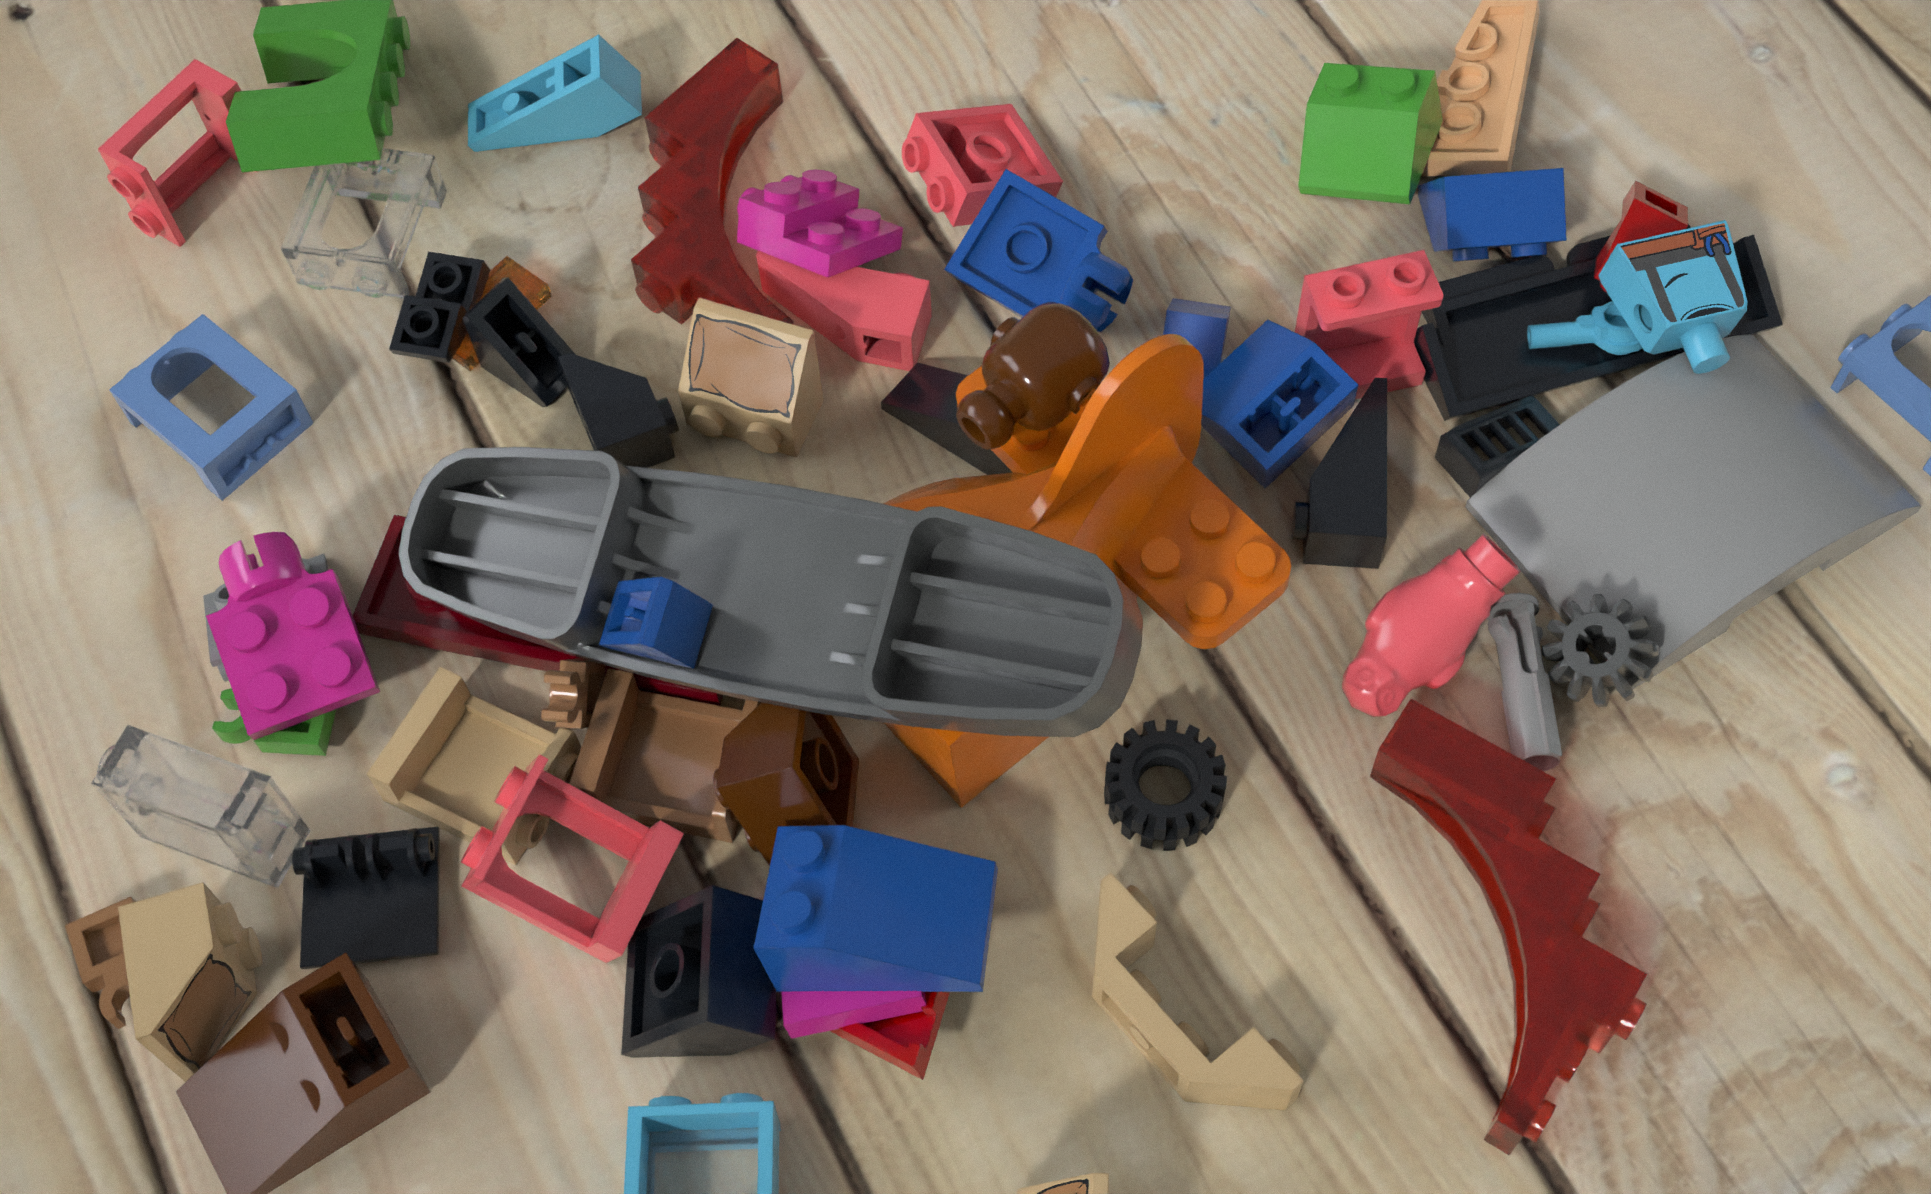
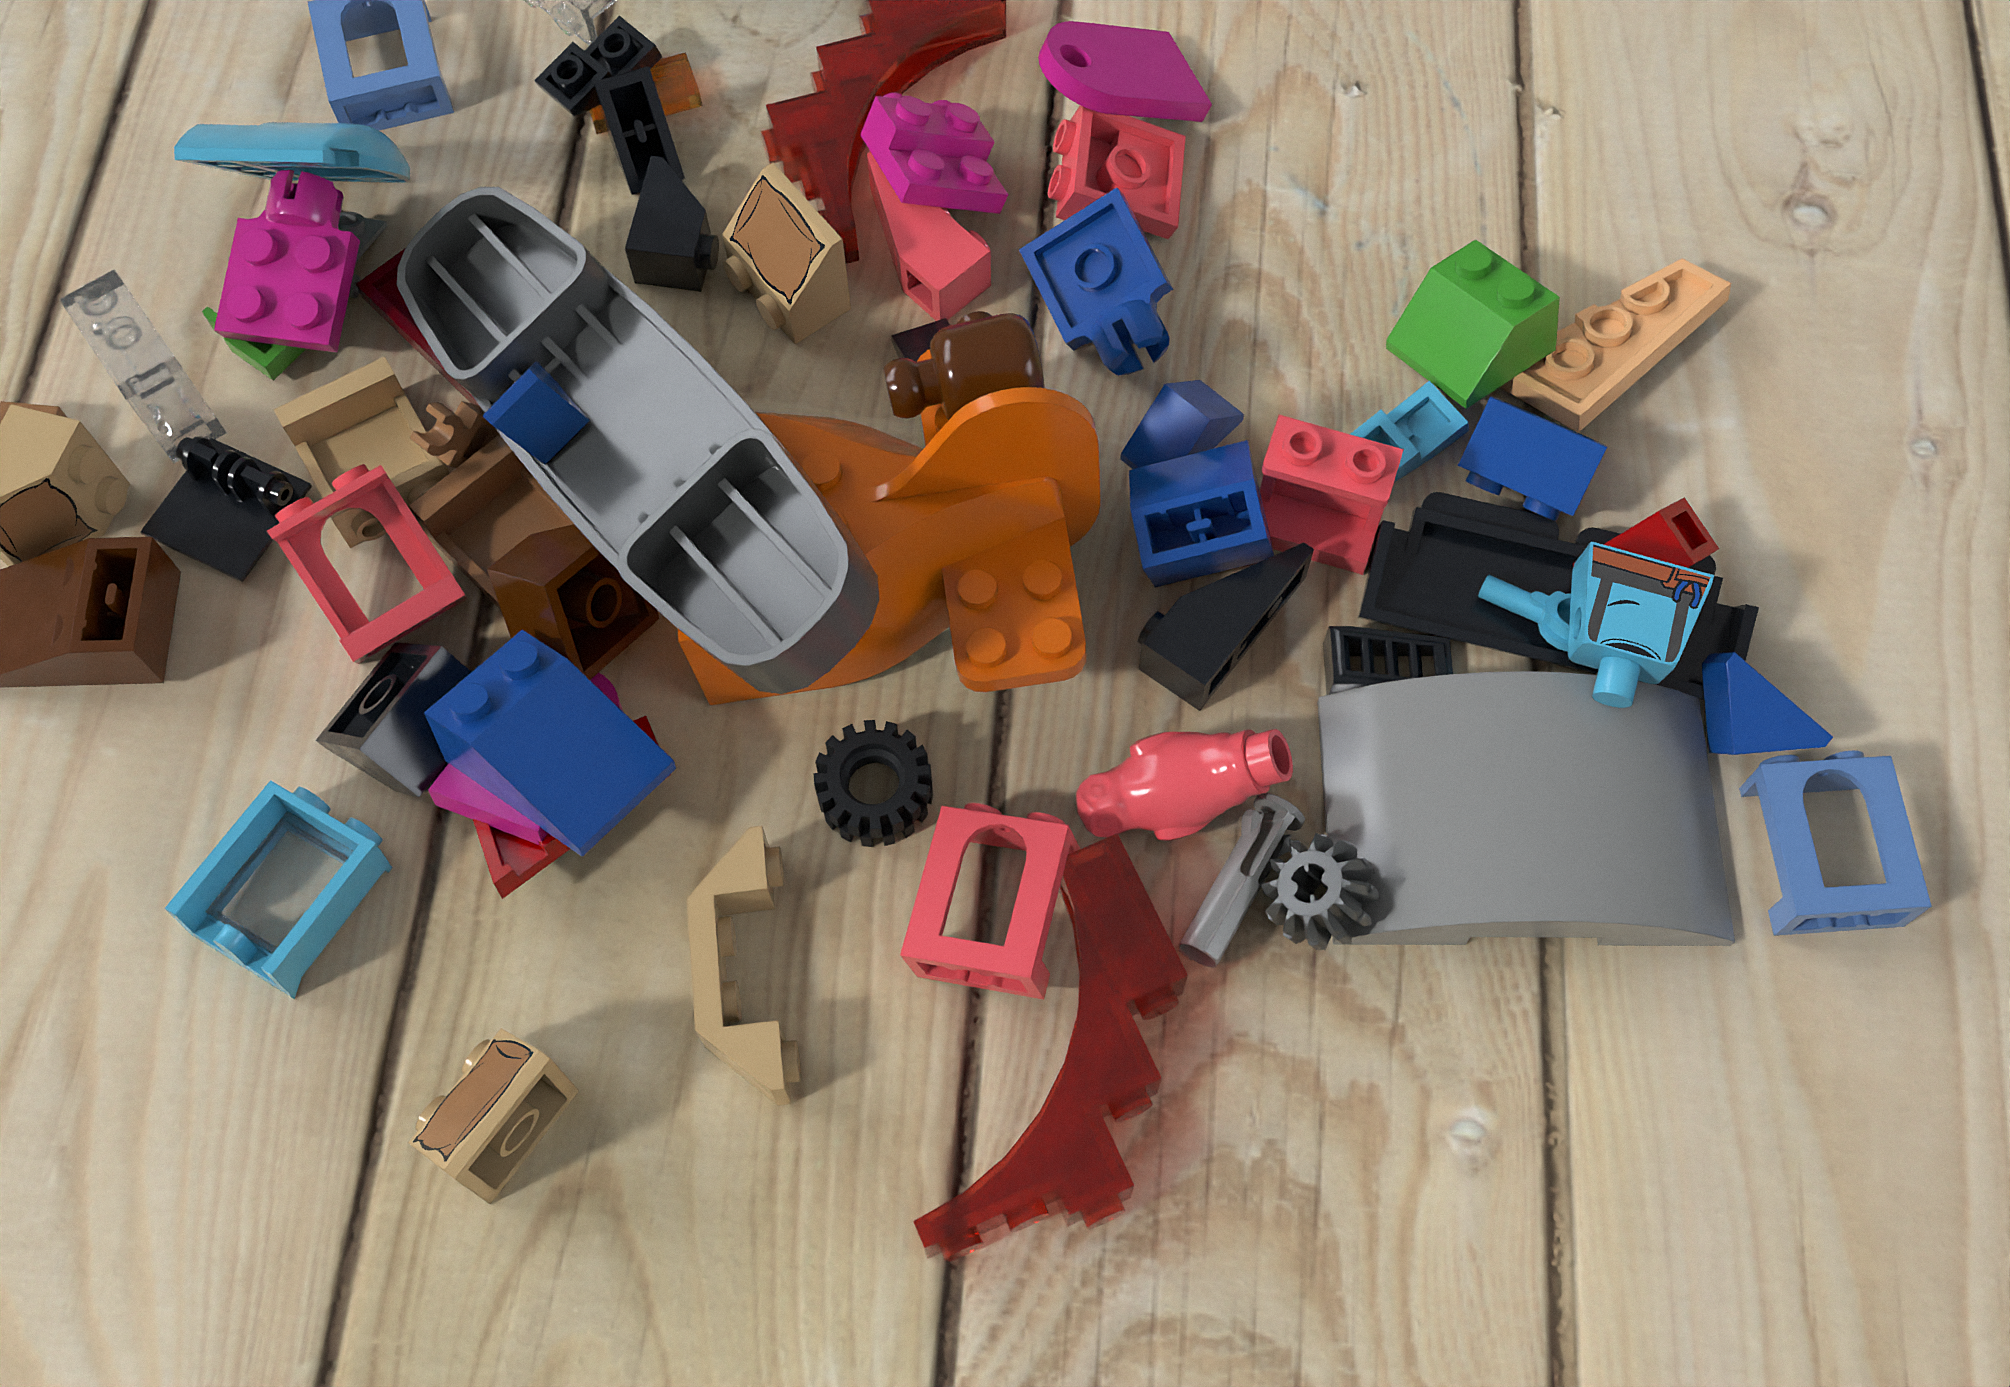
camera: 30 degrees right, 5 degrees up
(235, 515) = (324, 149): none -> medium azure slope
(924, 75) = (1122, 71): none -> dark pink tile
(1374, 878) = (1018, 964): none -> coral panel
(1378, 233) = (1419, 425): none -> medium azure slope
(1806, 319) = (1750, 713): none -> blue slope

